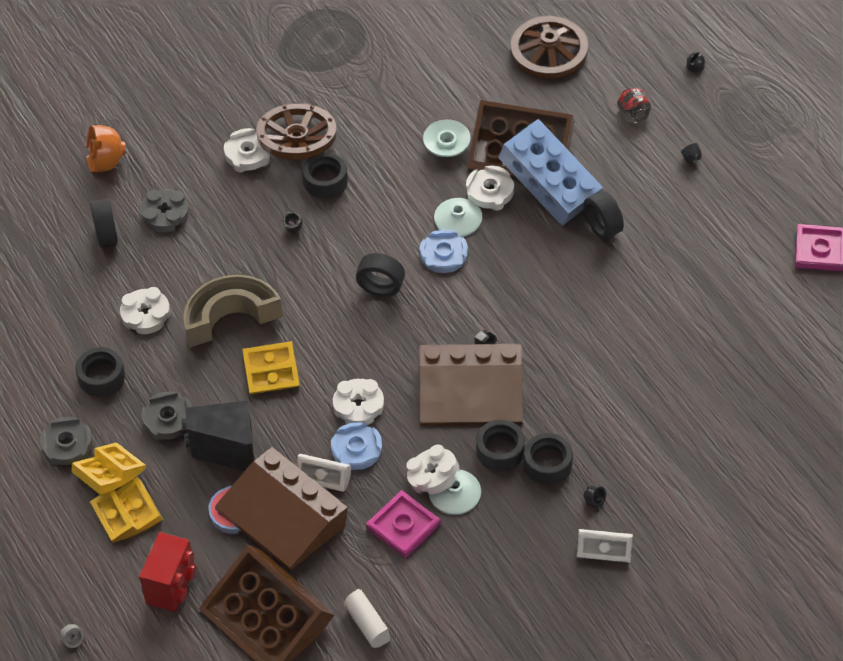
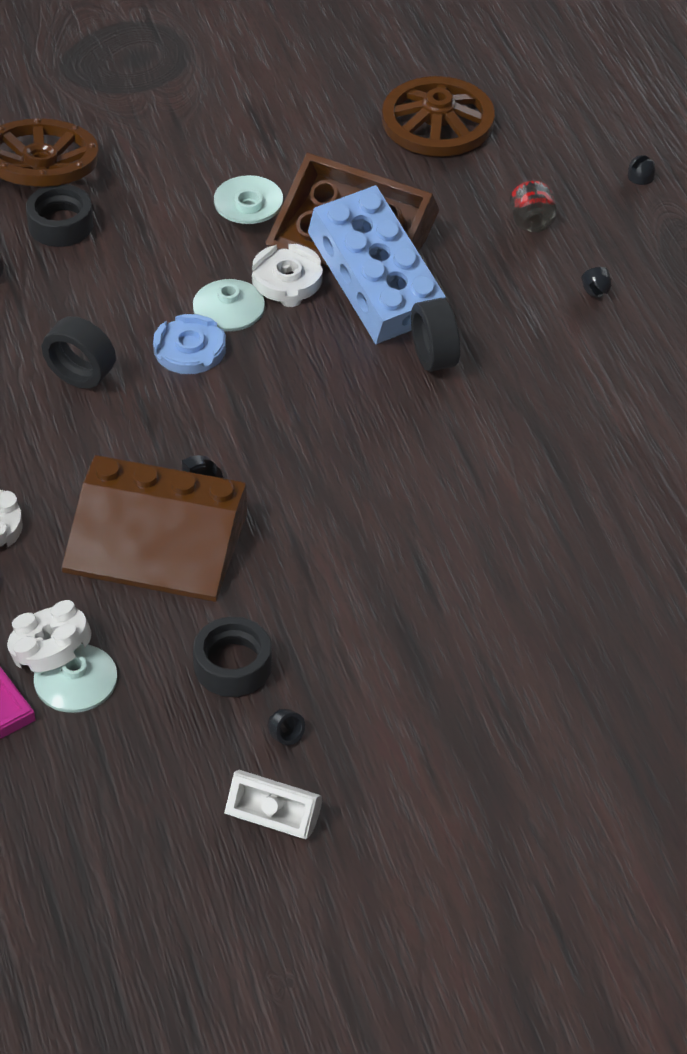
camera: 10 degrees right, 5 degrees down
(500, 462) = (159, 599): black tyre -> none

